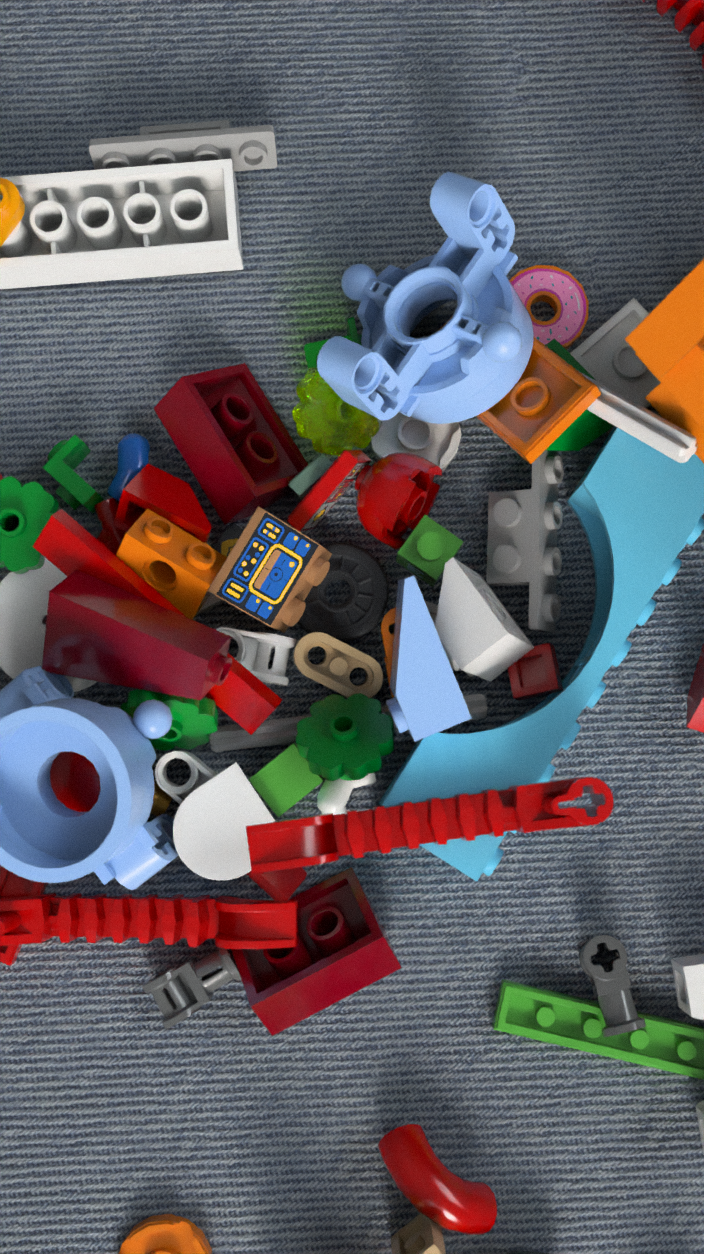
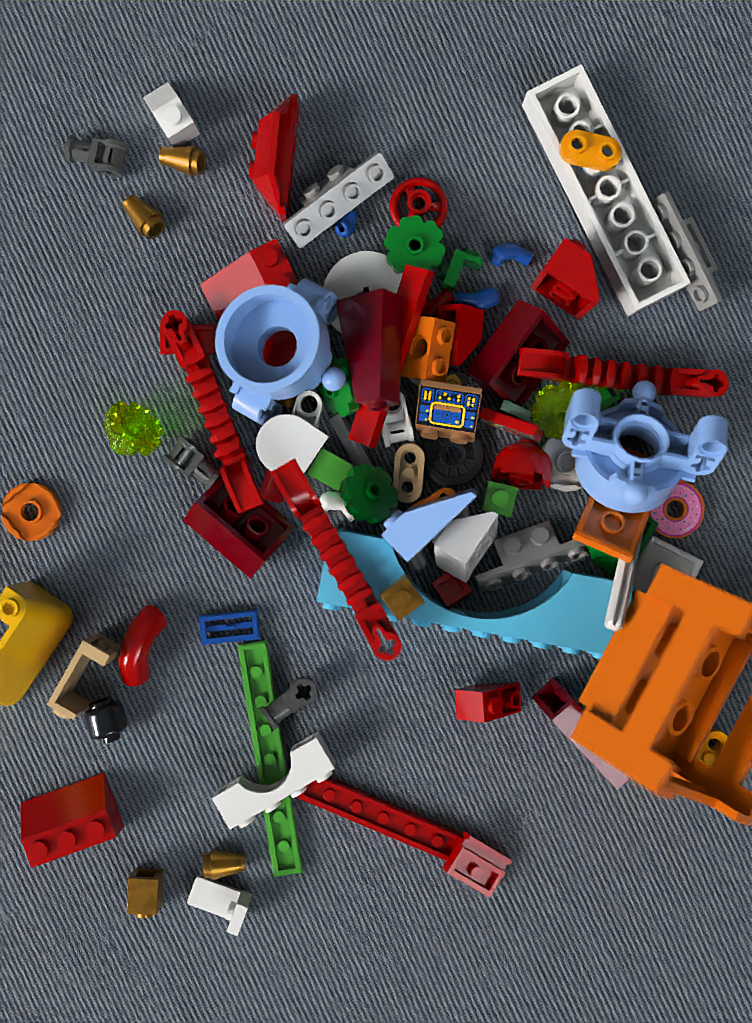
camera: 70 degrees right, 5 degrees up
(80, 396) = (510, 251): none -> blue arm
(103, 1057) = (132, 429): none -> clear neon green plant
(154, 321) = (569, 279): none -> red slope
(361, 239) = (673, 381): none -> red piece
(449, 1069) = (255, 623): none -> blue tile
(522, 748) = (401, 597): none -> pearl gold brick

